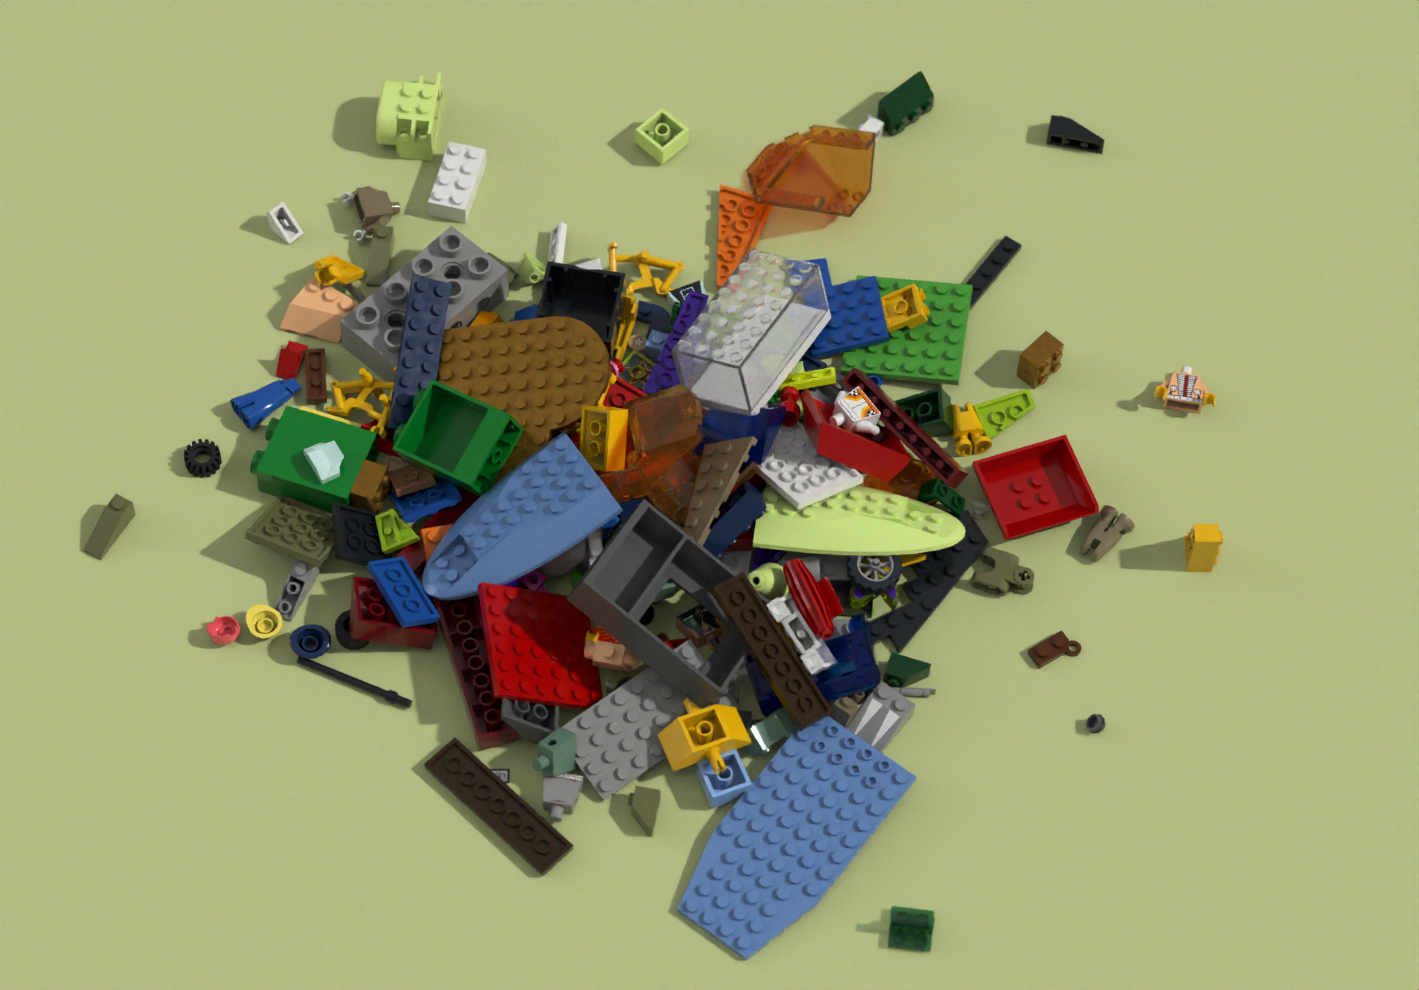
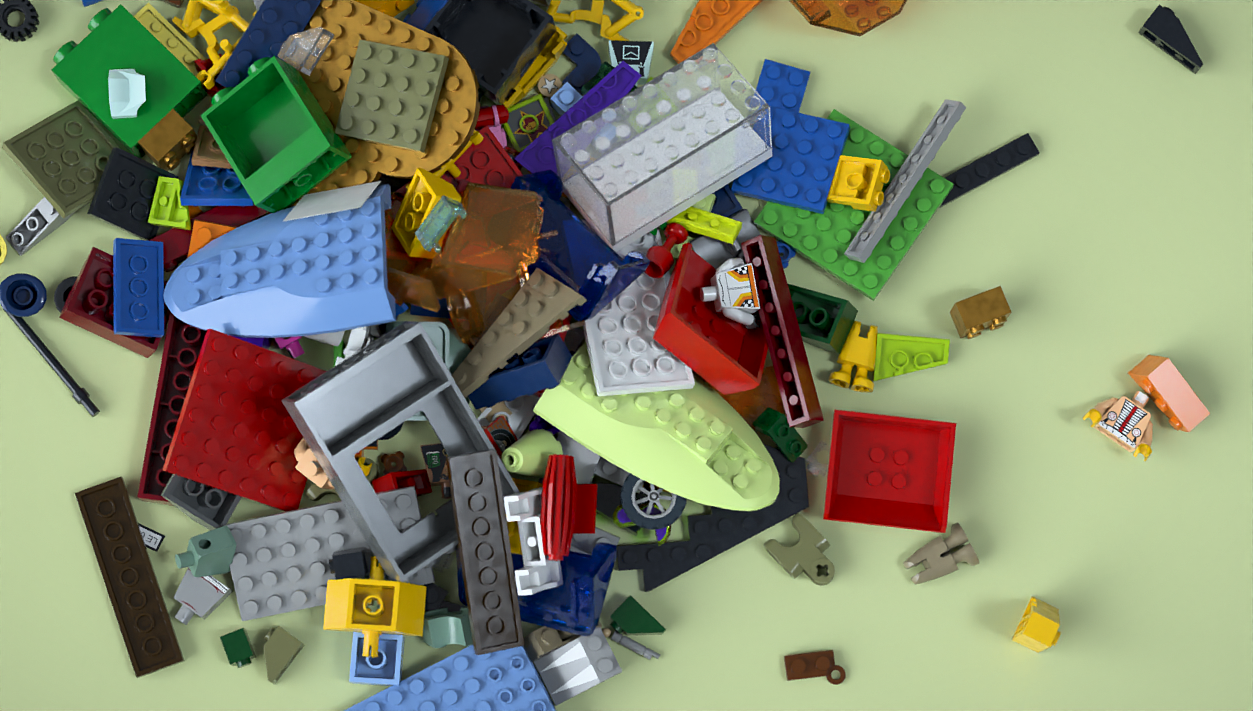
camera: 25 degrees right, 20 degrees up
(450, 369) = (305, 48): none -> clear slope
(528, 457) = (332, 201): none -> white sticker
(535, 370) = (391, 95): none -> olive plate
(611, 818) = (238, 648): none -> dark green brick
(619, 431) = (438, 222): none -> clear light blue hinge
(668, 712) = (348, 563): none -> black brick
(937, 293) = (905, 180): none -> light grey plate
(1205, 357) = (1169, 392): none -> wedge

